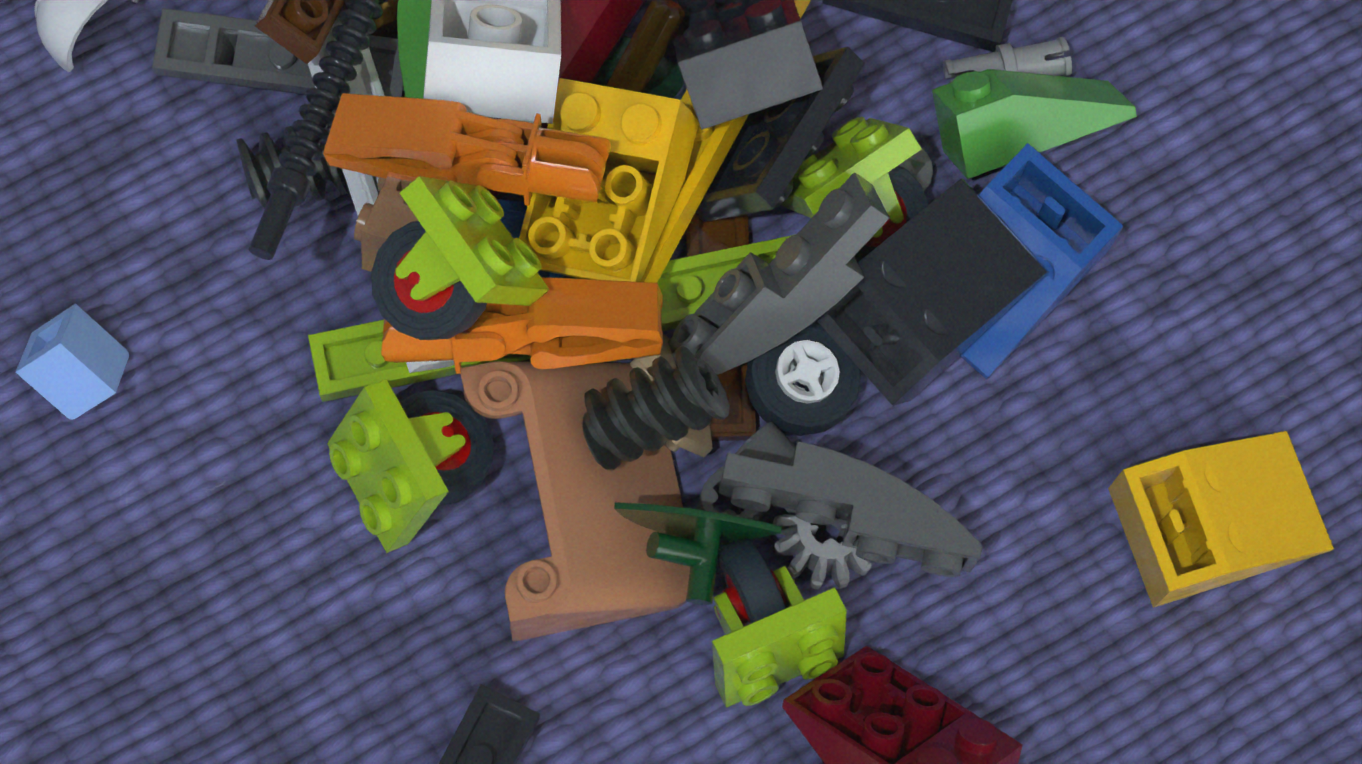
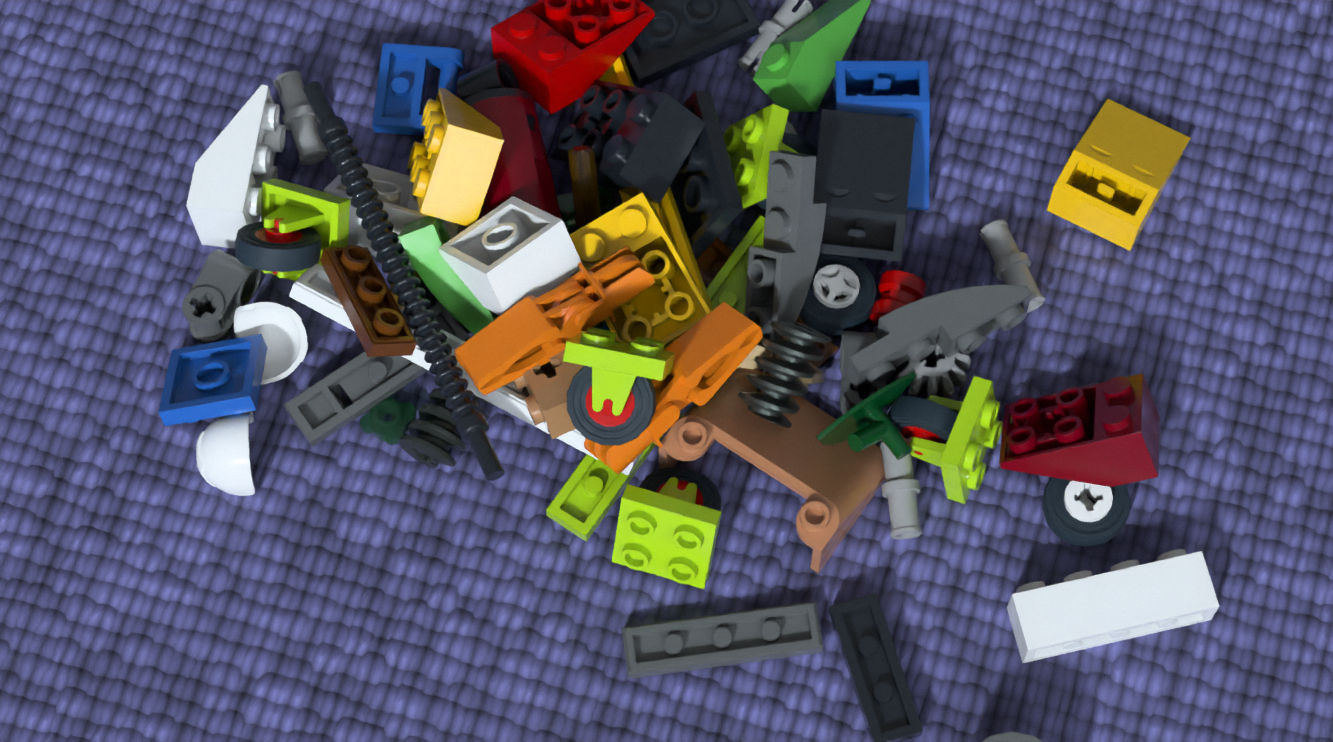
camera: 35 degrees left, 5 degrees down
(73, 362) = (427, 644): light blue panel -> none
(250, 126) = (394, 429): none -> clear green plate
(353, 618) = (722, 639): none -> dark grey tile
(666, 641) = (901, 494): none -> light grey pin
(866, 438) = (896, 290): none -> red wheel
(1012, 512) = (1009, 262): none -> light grey pin

